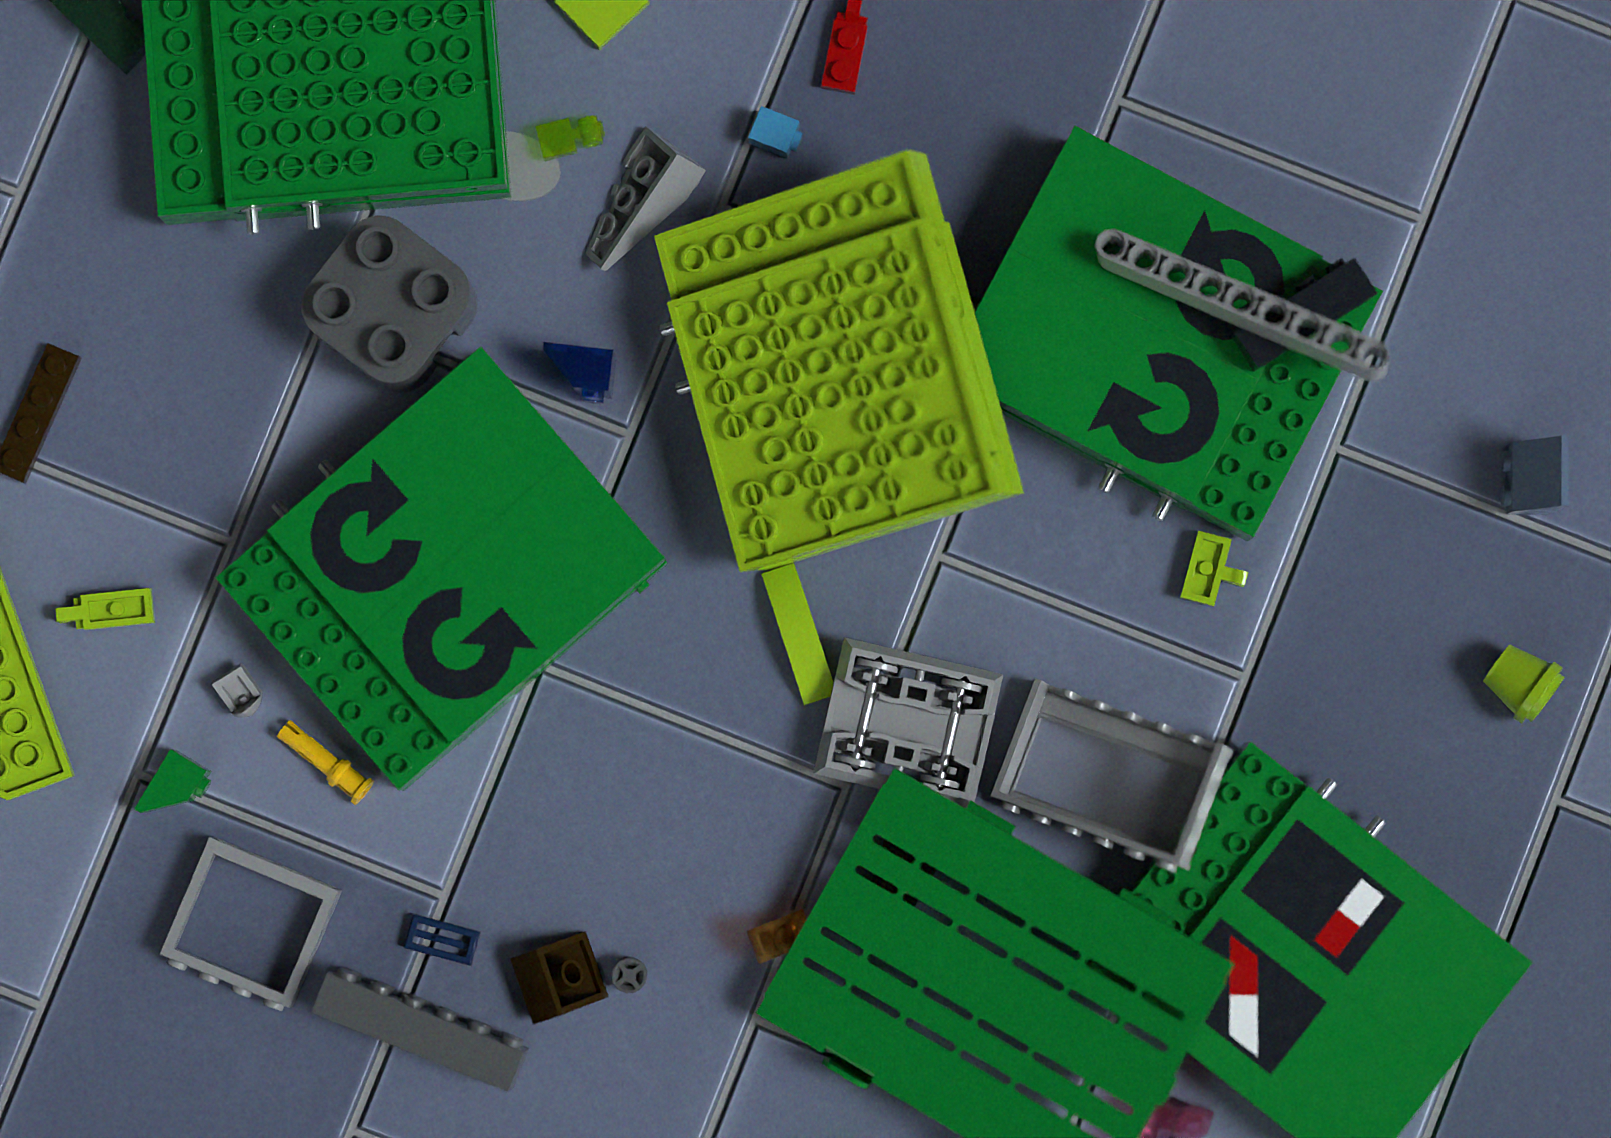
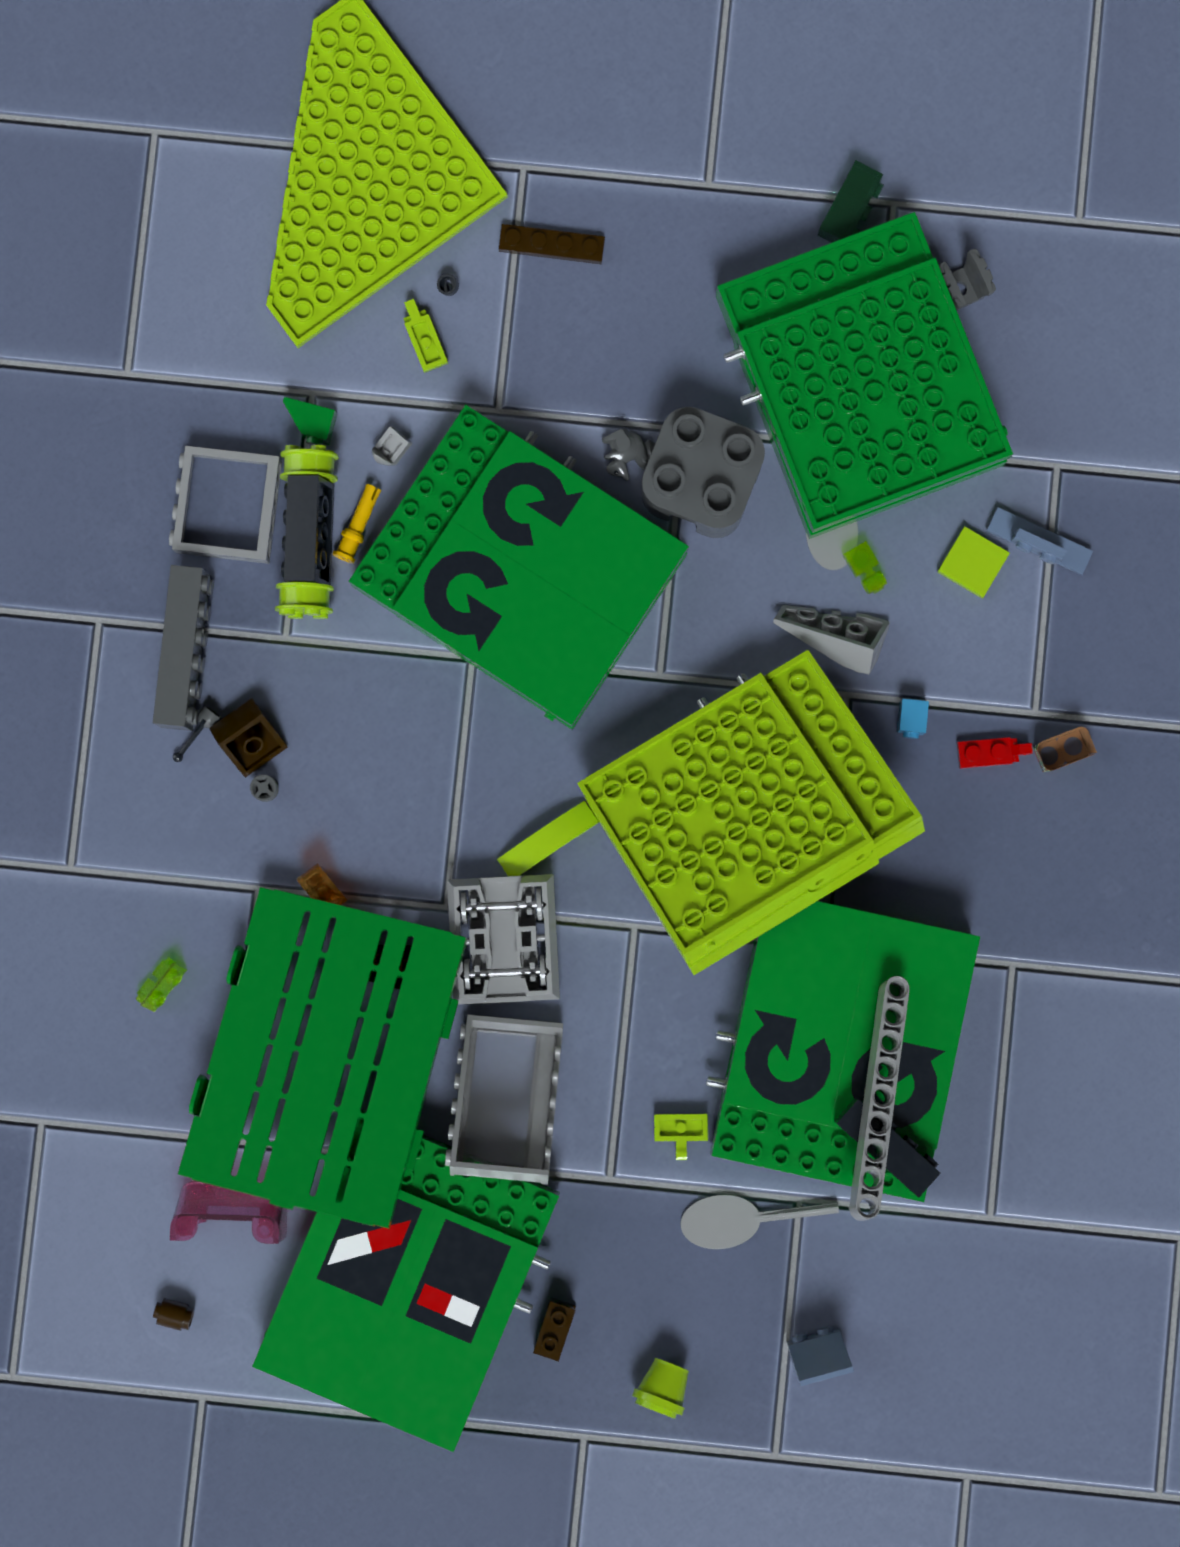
camera: 80 degrees right, 0 degrees up
(53, 566) = (443, 287): none -> black hinge
(319, 826) = (307, 532): none -> brick
(327, 391) = (624, 448): none -> dark grey animal
(413, 931) = (263, 645): dark blue tile -> none
(520, 1024) = (206, 718): none -> hinge
(585, 369) = (695, 628): clear blue slope -> none
(1338, 538) = (732, 1220): none -> light grey piece
(1413, 797) = (554, 1329): none -> dark brown hinge

